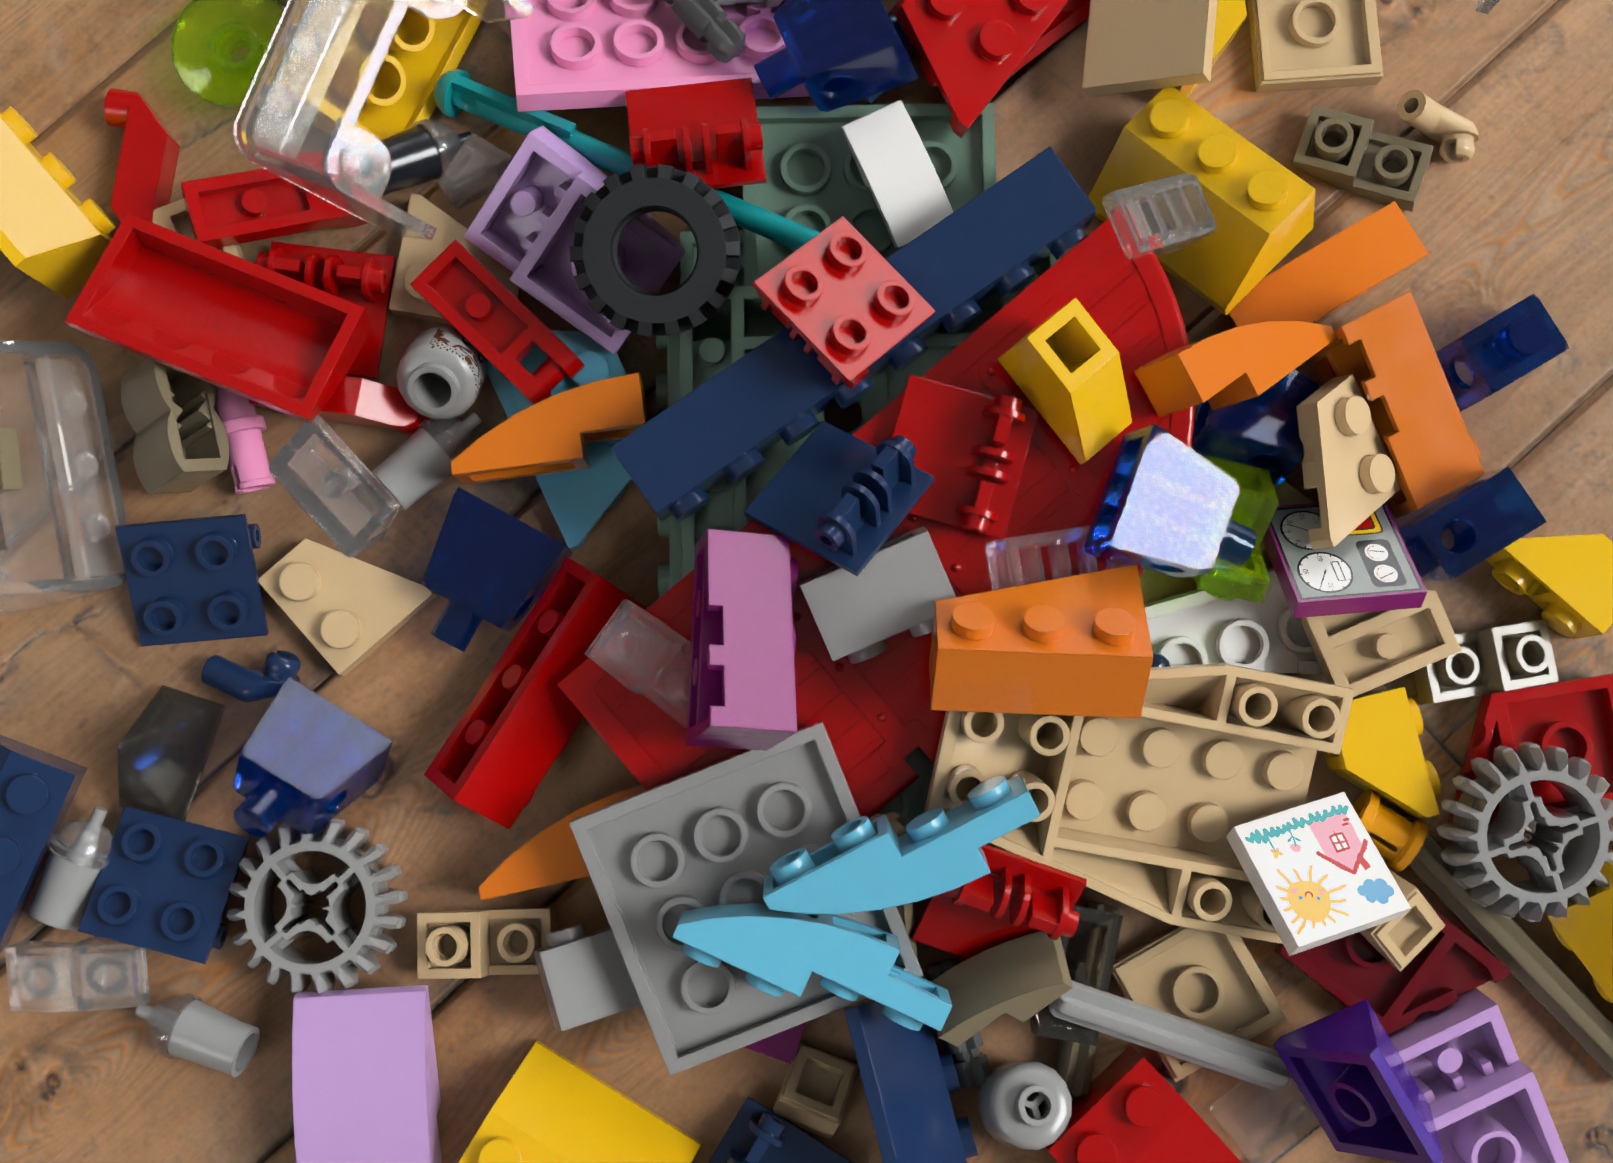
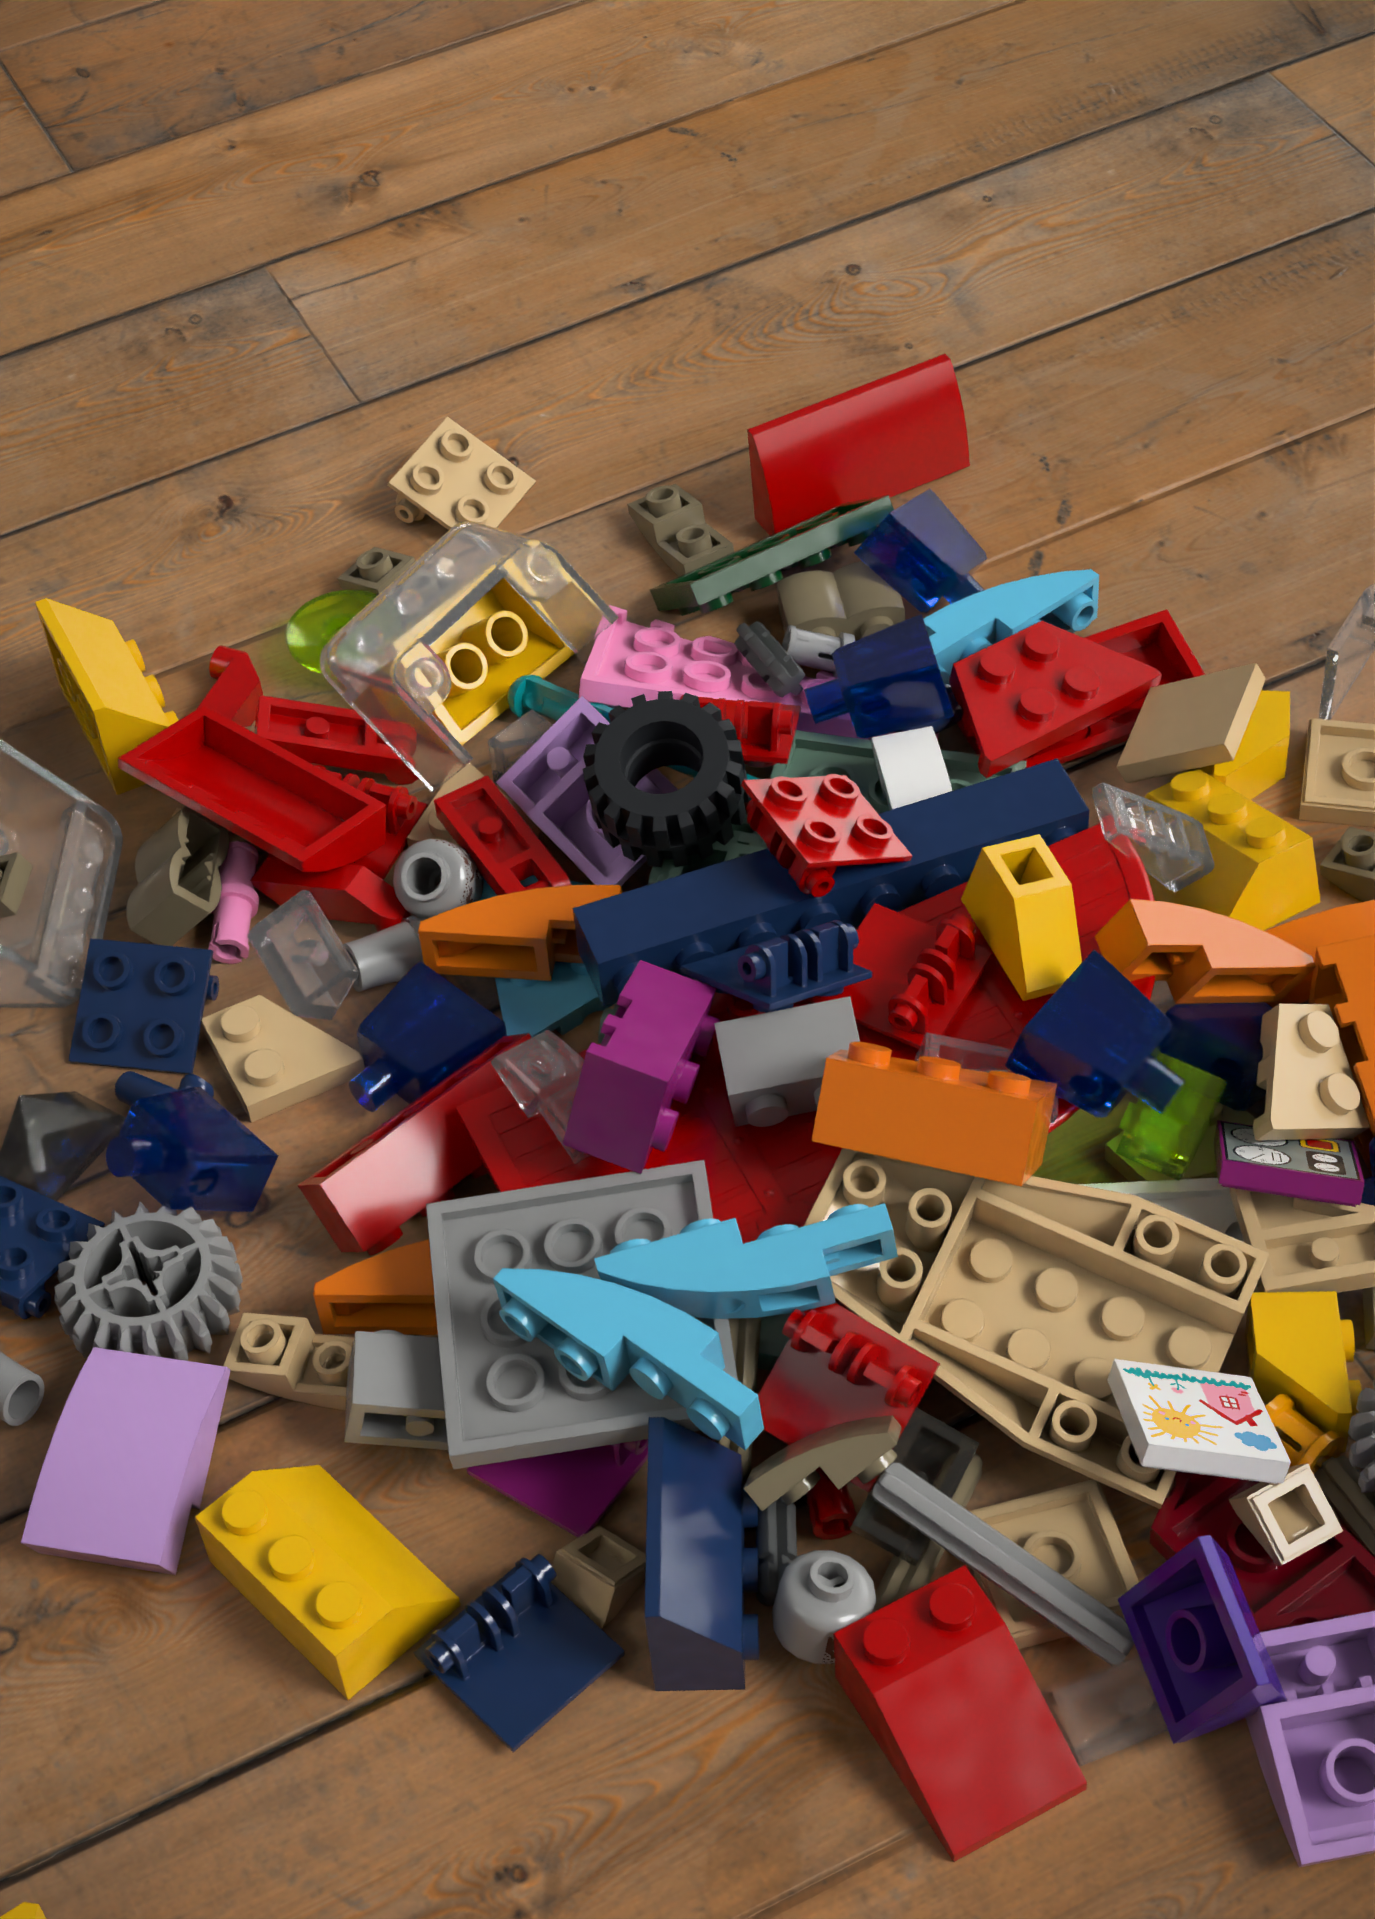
camera: 20 degrees right, 35 degrees down
(421, 153) = (474, 724): black piece -> none

